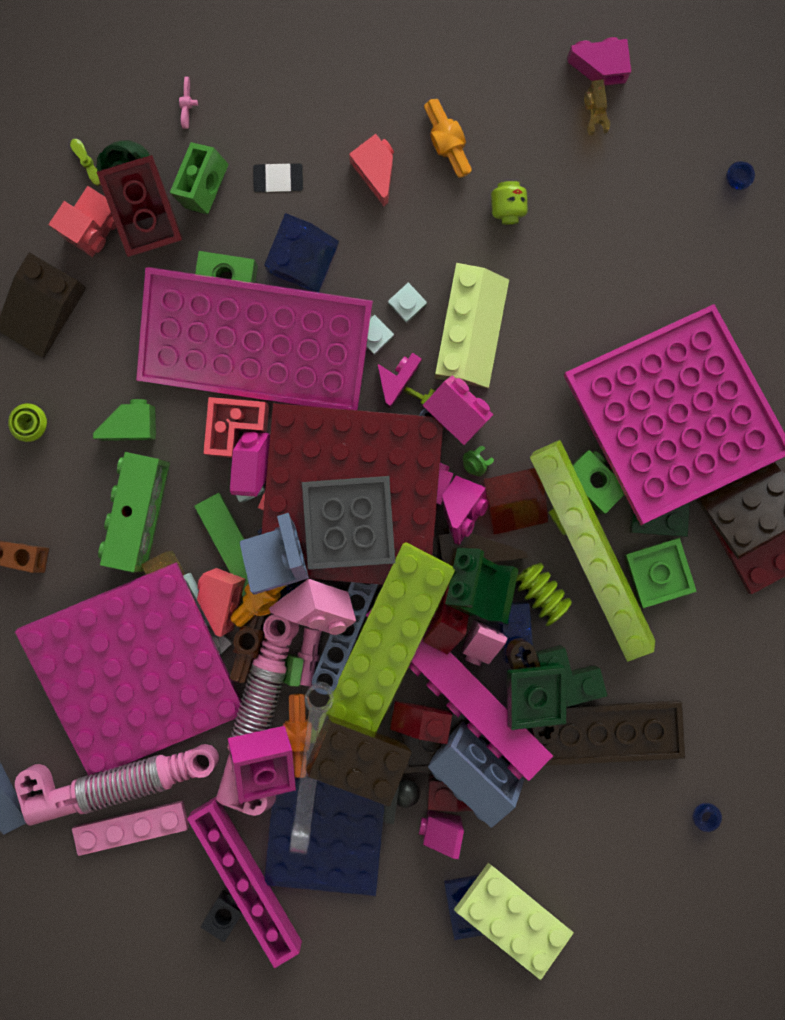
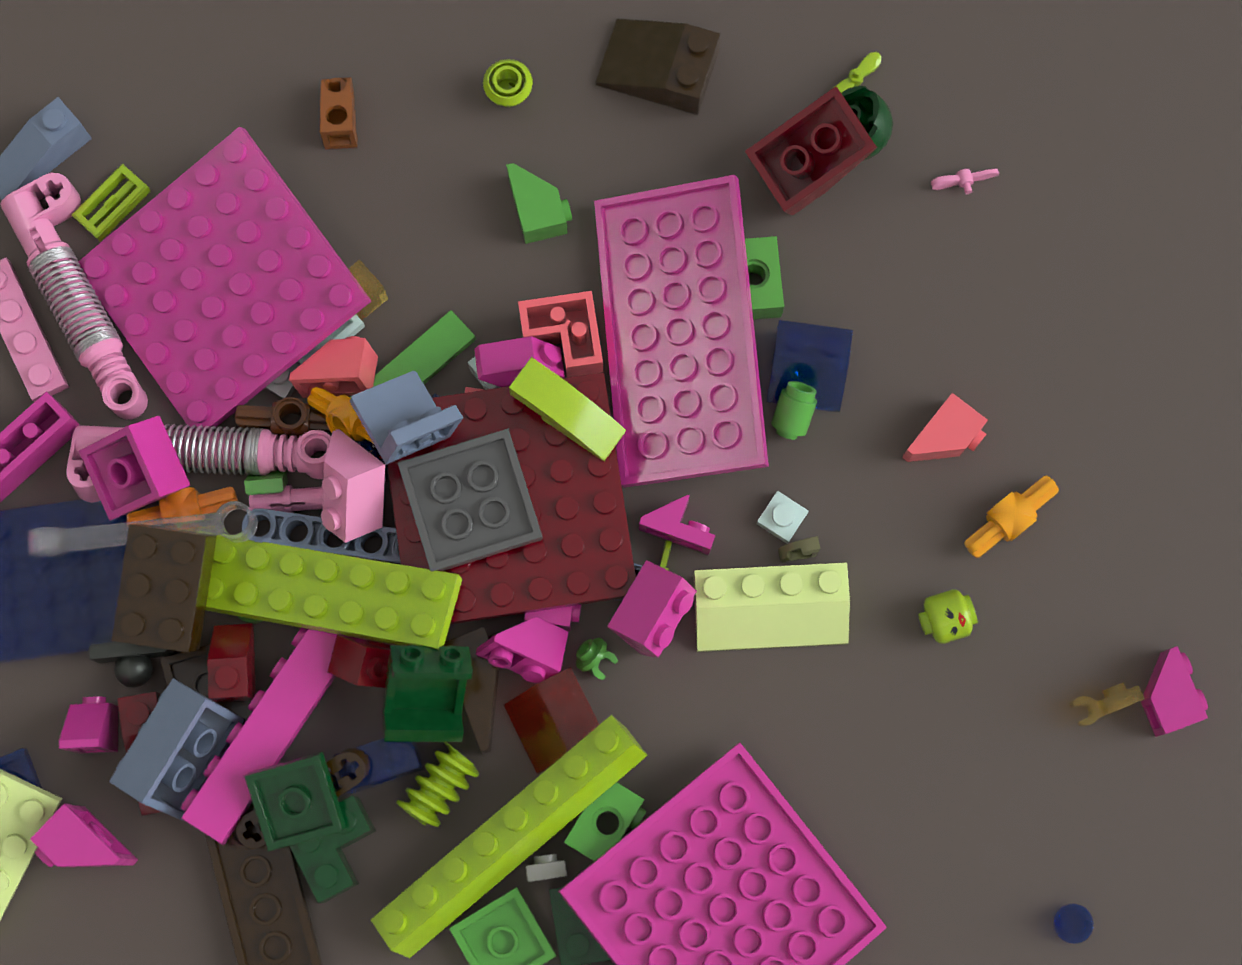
camera: 70 degrees right, 10 degrees down
(56, 735) = (120, 212): none -> lime tile
(86, 222) = (773, 92): coral brick -> none
(134, 512) = (424, 236): bright green brick -> none
(199, 178) = (870, 215): bright green brick -> none
(278, 177) = (902, 315): sticker -> none
(297, 435) = (566, 409): none -> lime slope
(332, 272) = (794, 410): none -> bright green brick
(378, 335) = (729, 488): light aqua plate -> none
(435, 295) = (799, 550): none -> olive tile
(482, 643) = (354, 718): bright pink slope -> none
(525, 855) = (79, 840): none -> dark pink slope
(618, 530) = (546, 868): none -> light grey plate

